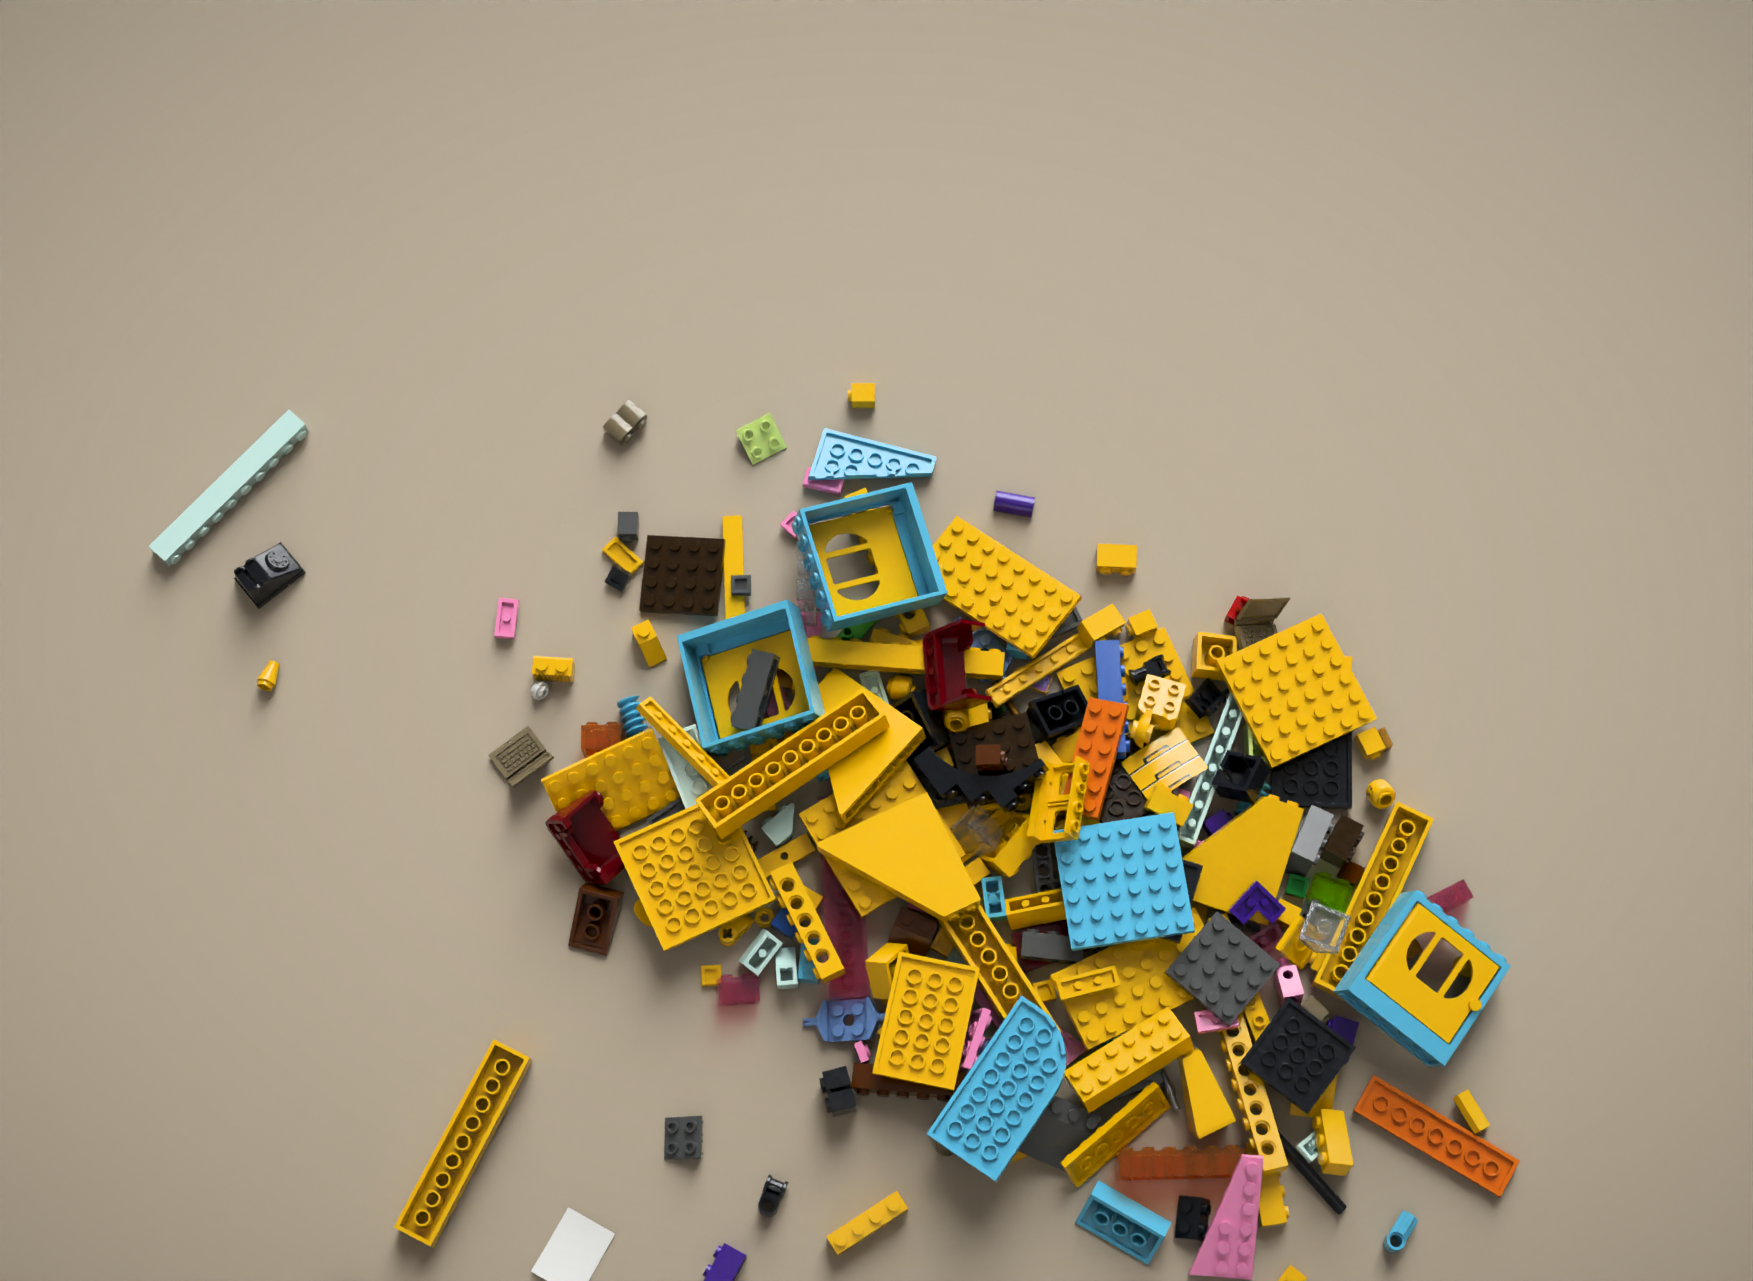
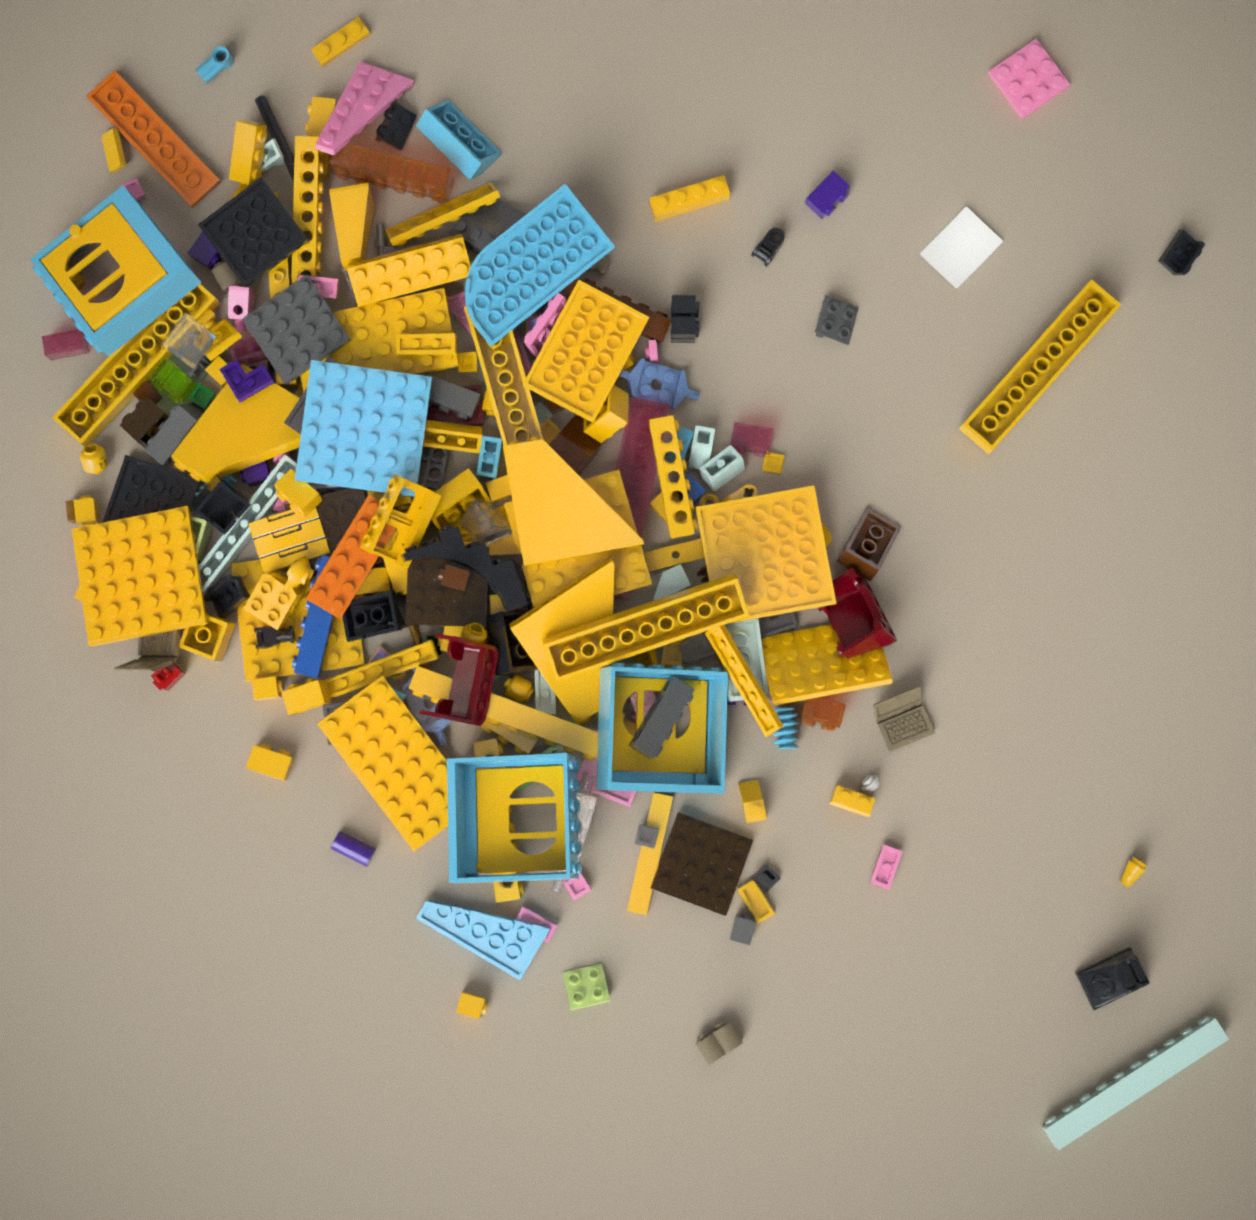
camera: 165 degrees left, 10 degrees up
(1437, 1076) = (134, 188): none -> bright pink plate

